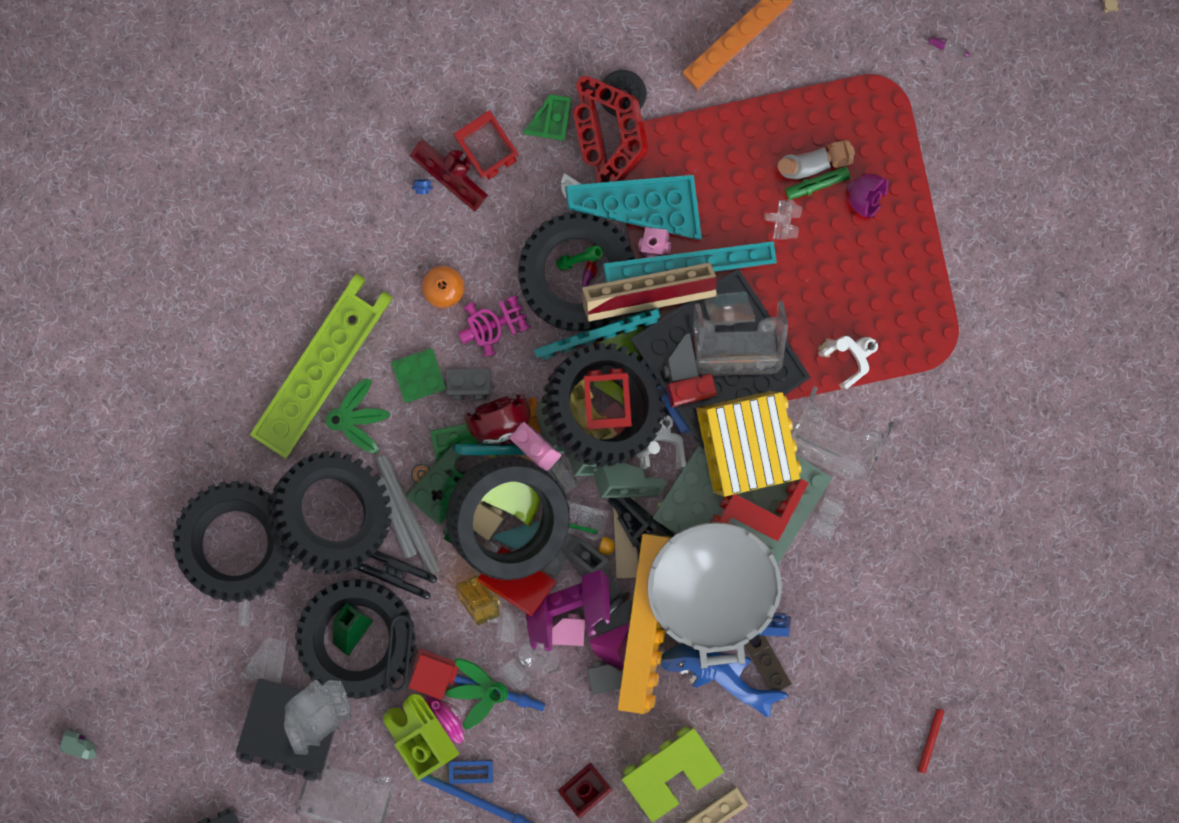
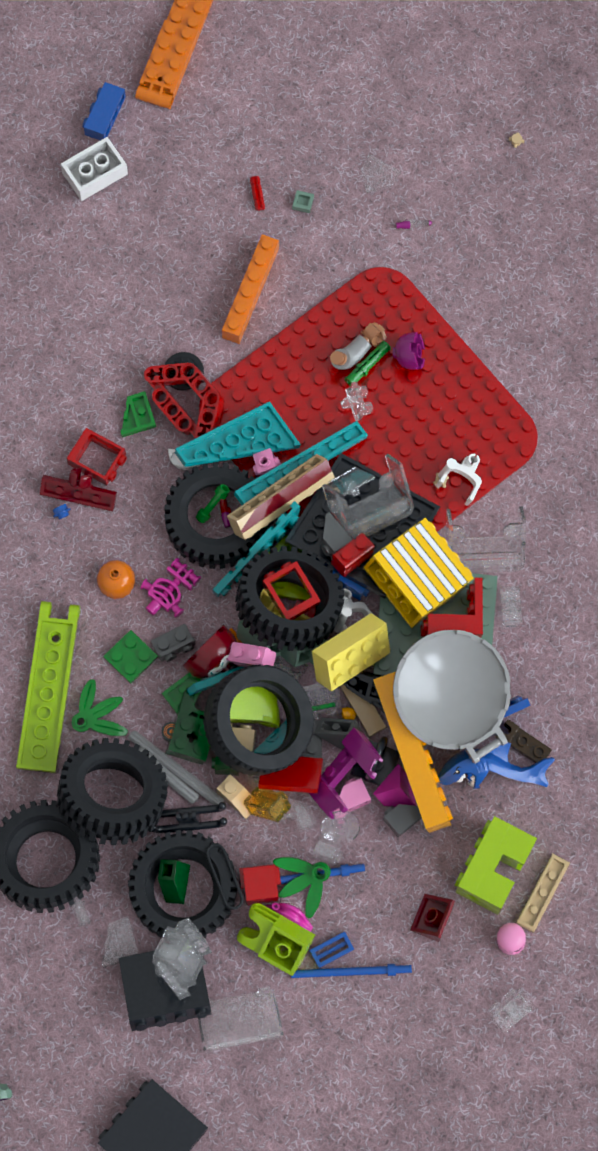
camera: 25 degrees left, 15 degrees down
(452, 572) = (234, 795): none -> tan slope
(636, 492) = (351, 652): none -> light yellow brick

